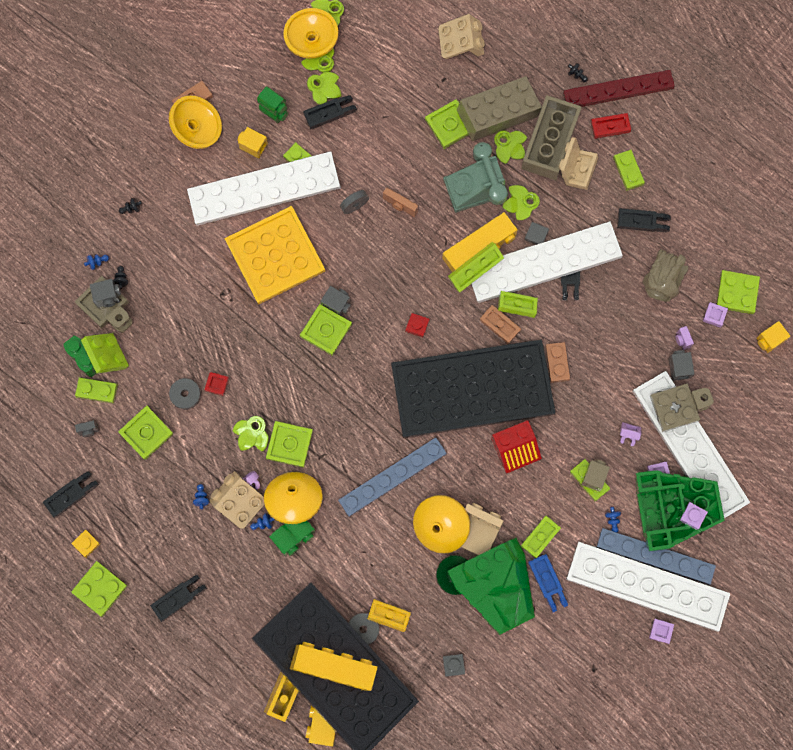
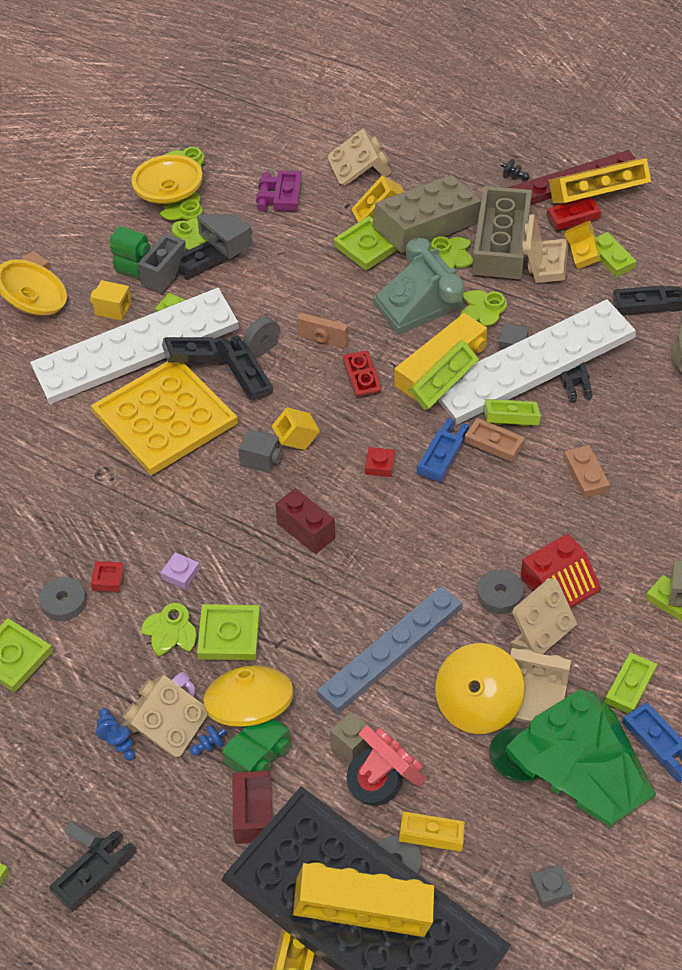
camera: 10 degrees left, 25 degrees down
(176, 574) = (83, 834): none -> dark grey tile
(207, 513) = (120, 739): none -> blue hair
(265, 387) = (180, 570): none -> lavender plate
(281, 576) = (251, 804): none -> dark red panel
(294, 117) = (161, 262): none -> dark grey slope
(306, 205) = (192, 350): none -> black hinge
(326, 329) = (253, 486): lime plate -> none
(338, 227) = (245, 368): none -> black hinge
(346, 100) = (225, 233): none -> dark grey slope
(352, 542) = (346, 738): none -> dark tan brick
(355, 368) = (305, 521): none -> dark red brick
(363, 290) = (295, 428): none -> yellow brick
(367, 568) = (378, 772): none -> plate
(400, 58) = (286, 192): none -> magenta plate
(420, 246) = (361, 373): none -> red slope
(462, 326) = (442, 451): none -> blue hinge
(467, 85) = (381, 190): none -> yellow slope
(472, 388) = (476, 520): black plate -> none
(480, 441) = (500, 602): none -> dark grey piece
(493, 486) = (543, 618): none -> tan bracket
(609, 158) = (583, 244): none -> yellow slope
(637, 101) = (599, 180): none -> yellow brick

